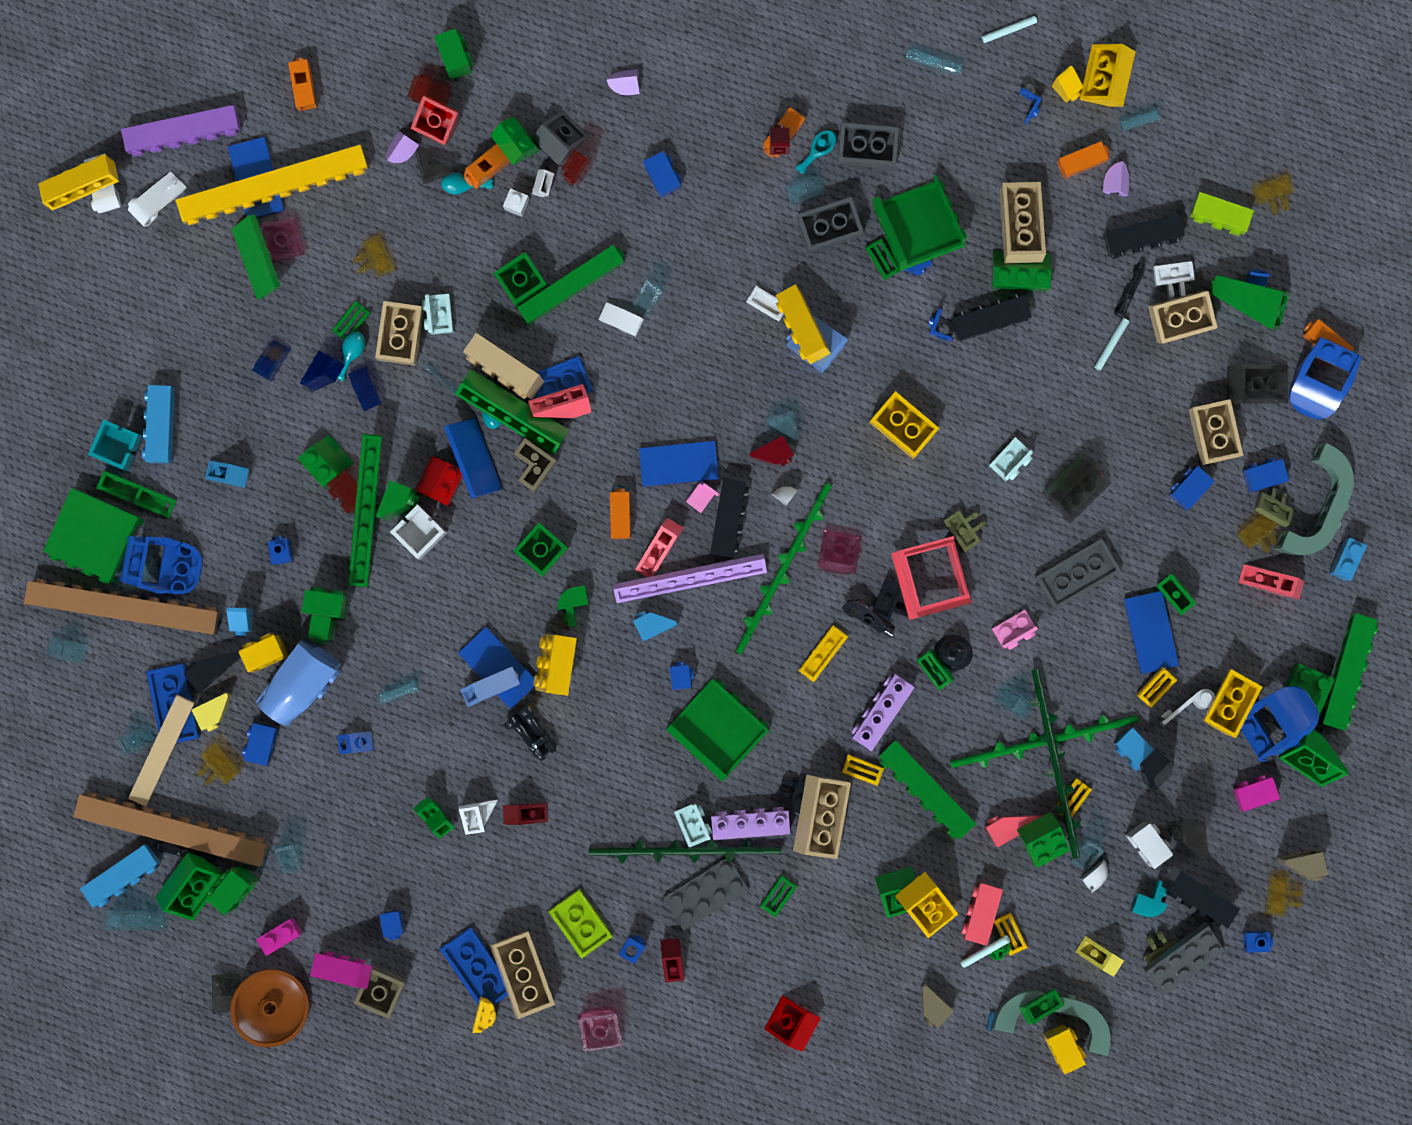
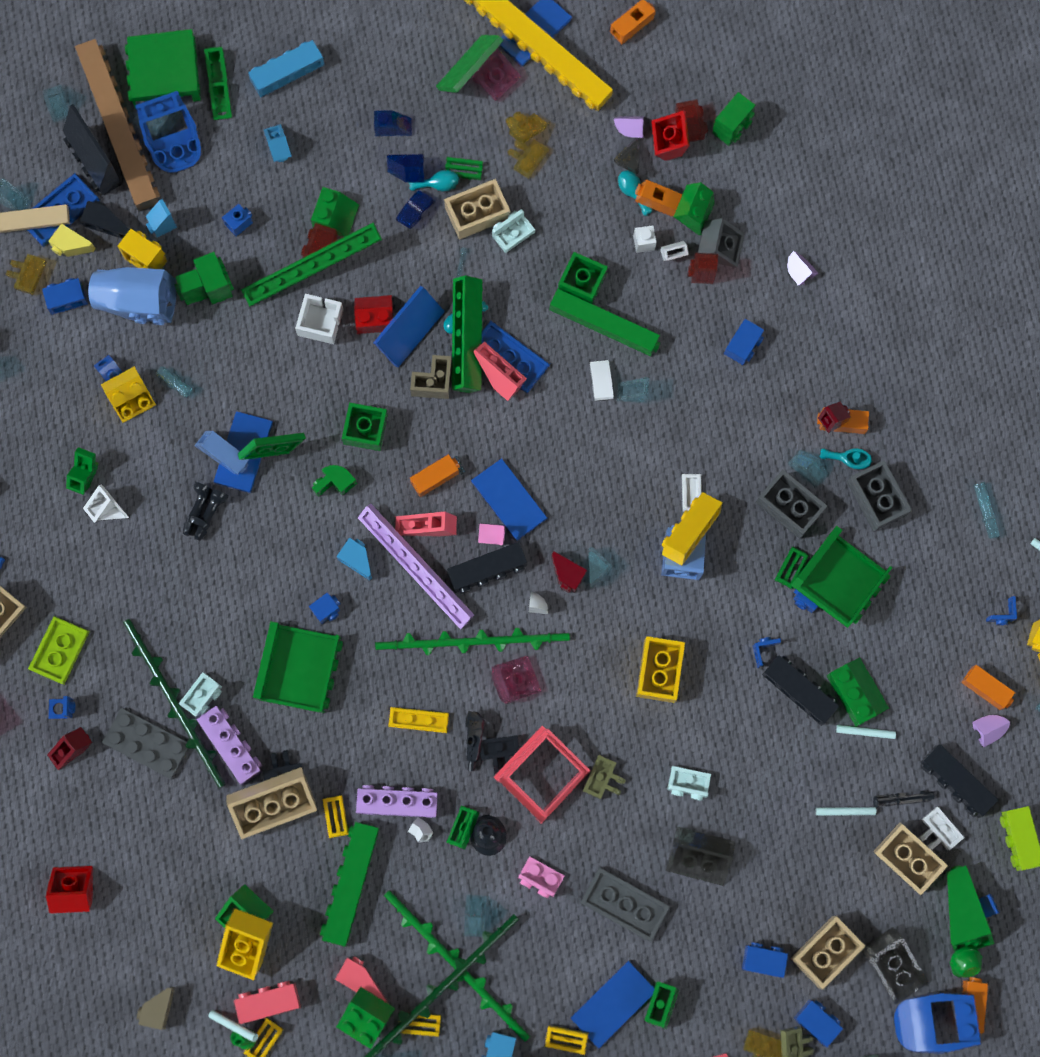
camera: 55 degrees right, 10 degrees down
(115, 445) = (248, 43): teal piece -> none
(138, 647) = (89, 153): none -> black slope
(346, 244) = (524, 127): none -> clear yellow hinge
(386, 738) = (128, 394): none -> yellow slope
(396, 501) = (333, 282): green slope -> none
(503, 366) = (499, 305): tan brick -> none
(514, 639) = (271, 446): none -> green tile
(525, 814) = (128, 546): dark red slope -> none
(555, 664) = (272, 493): yellow brick -> none
(769, 909) = (185, 801): green tile -> none
(917, 706) = (420, 830): none -> white piece
(1022, 222) = (900, 665): tan brick -> none
(1057, 285) = (866, 732): none -> light aqua bar
(1291, 324) = (966, 962): none -> green hat

